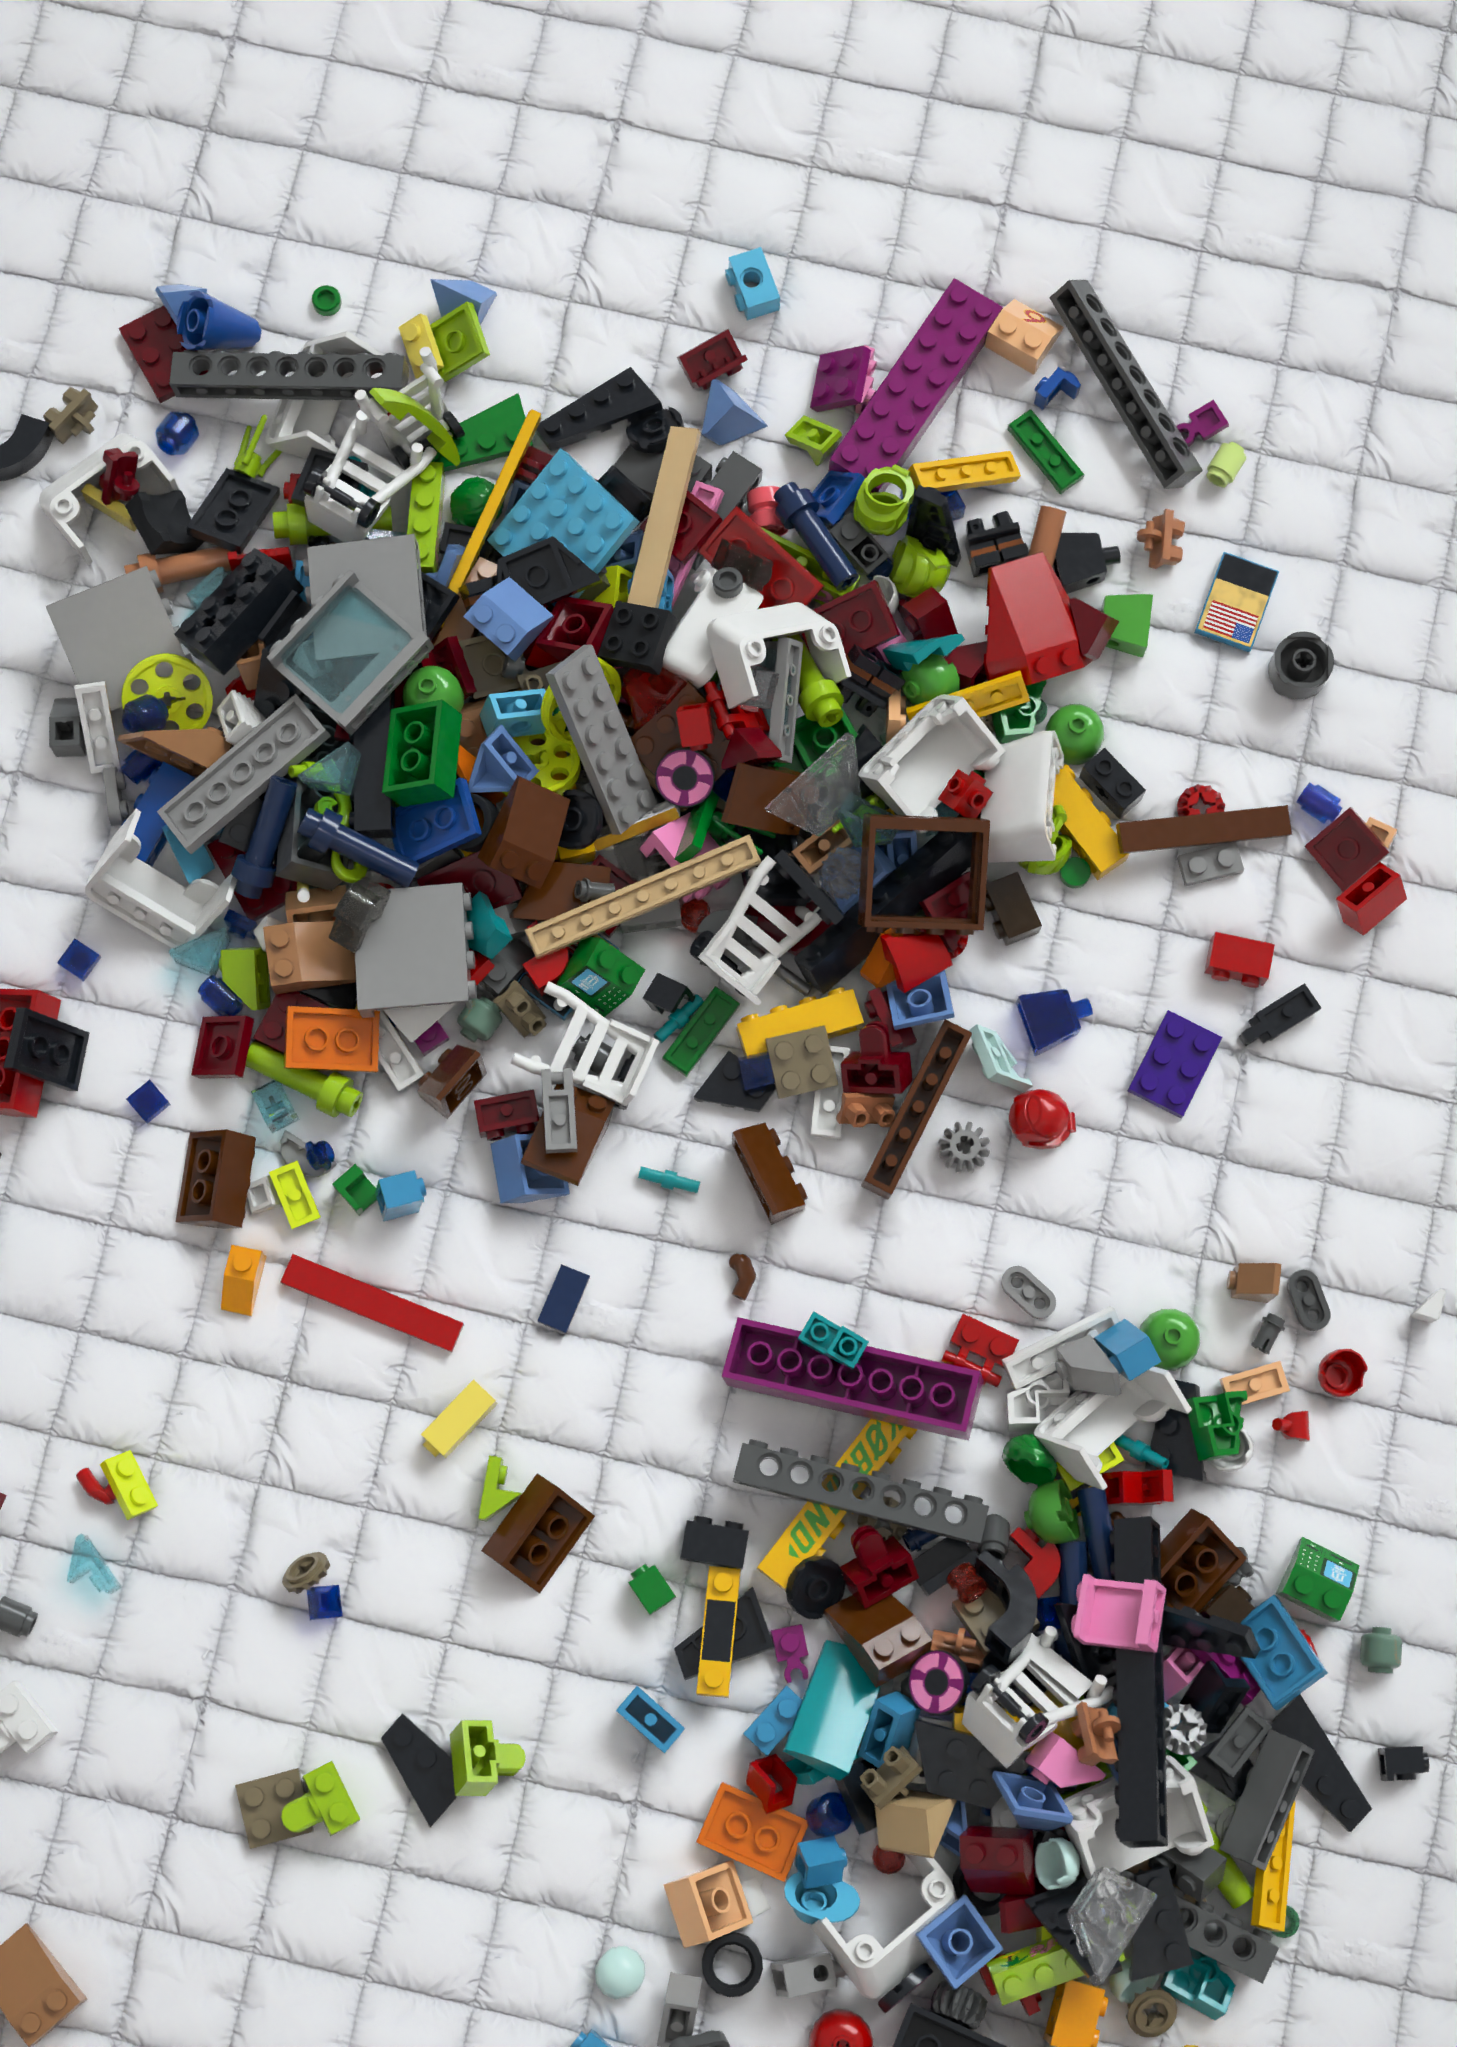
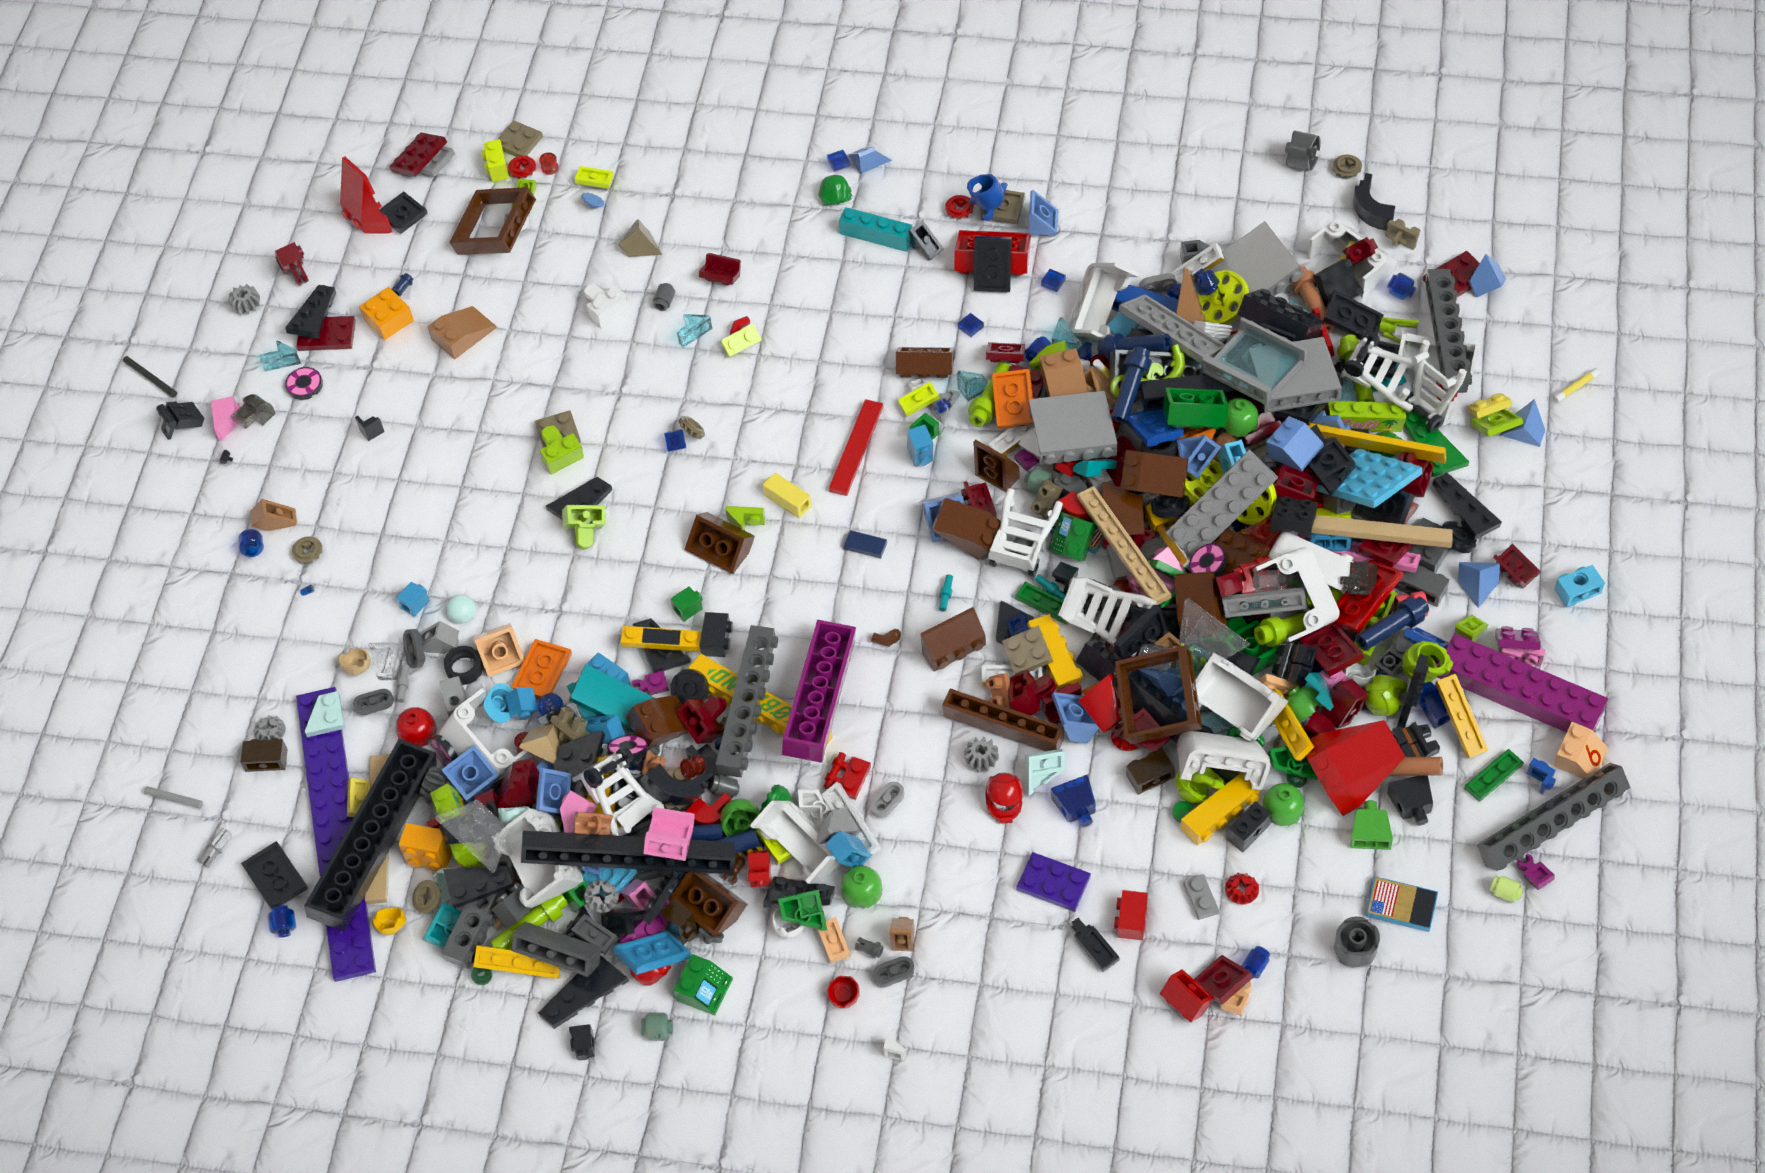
camera: 95 degrees right, 20 degrees down
(215, 325) = (1475, 293): blue cone -> none
(242, 1279) = (866, 379): light orange slope -> none
(326, 300) = (1512, 355): green tile -> none
(335, 771) = (1177, 364): clear light blue slope -> none
(356, 911) = (1090, 386): clear smoke brick -> none
(395, 222) = (1576, 385): none -> light yellow bar
(400, 404) = (1429, 368): lime slope -> none
(559, 1111) = (977, 512): light grey plate -> none
(589, 890) = (1125, 520): dark grey pin -> none
(650, 1719) = (607, 606): dark azure brick -> none
(695, 726) = (1238, 552): red brick -> none
(727, 582) = (1342, 564): dark grey tile -> none
(771, 1782) = (567, 672): red window -> none
(832, 1340) = (841, 670): teal slope -> none
(966, 794) = (1218, 719): red brick -> none
(1092, 628) = (1358, 798): dark red slope -> none
(1141, 1452) = (783, 869): teal bar -> none
(1159, 537) = (1449, 850): nougat hips -> none
(1203, 829) = (1223, 884): reddish brown tile -> none
(1293, 1426) = (806, 965): red piece -> none

